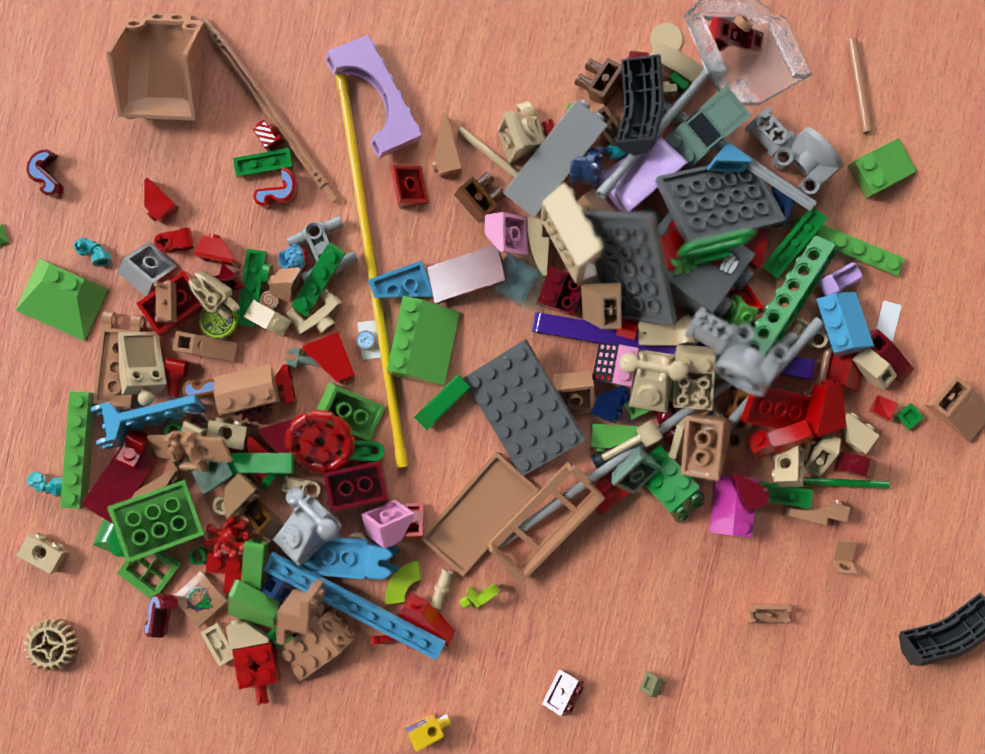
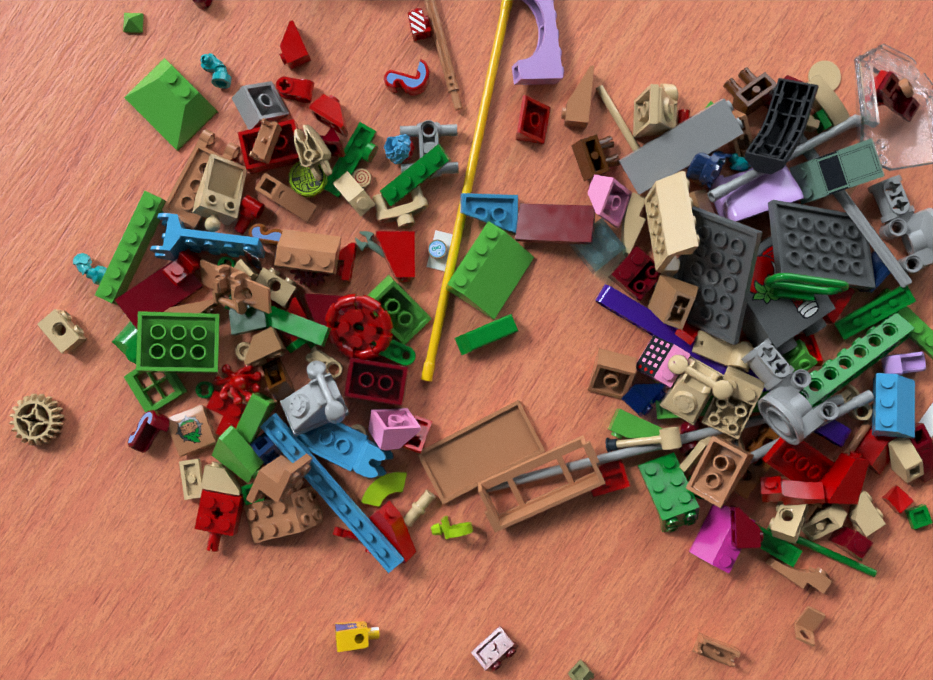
camera: 25 degrees right, 0 degrees up
(262, 162) = (404, 48): green plate -> none
(285, 283) = (382, 167): nougat slope -> none
(524, 408) = (561, 369): dark grey plate -> none
(635, 471) = (643, 468): sand green slope -> none
(729, 160) = (844, 211): dark azure slope -> none

